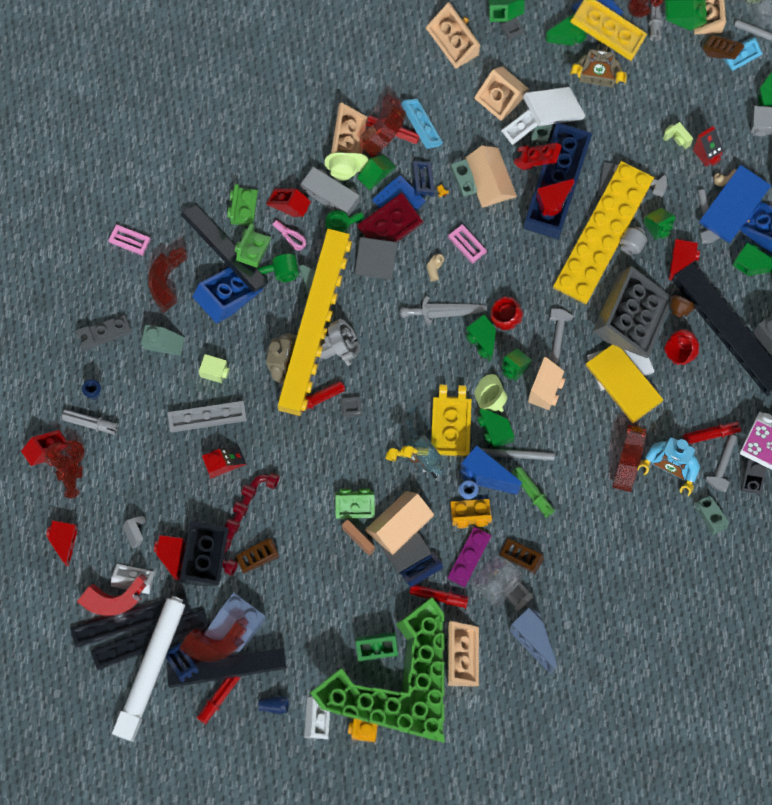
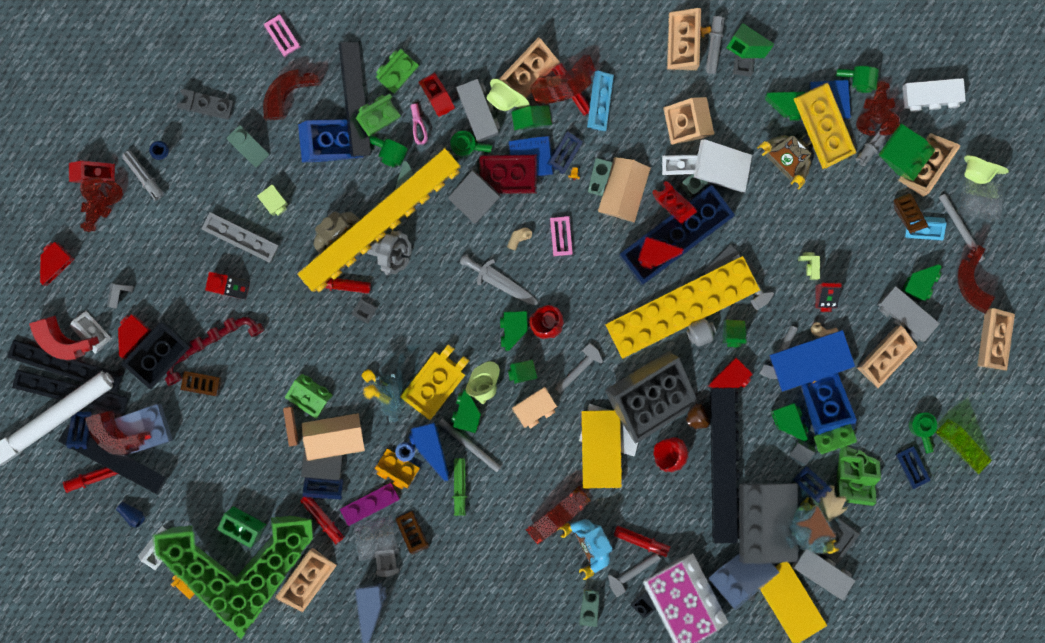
camera: 35 degrees right, 15 degrees up
(475, 20) = (716, 35): none -> light grey axle

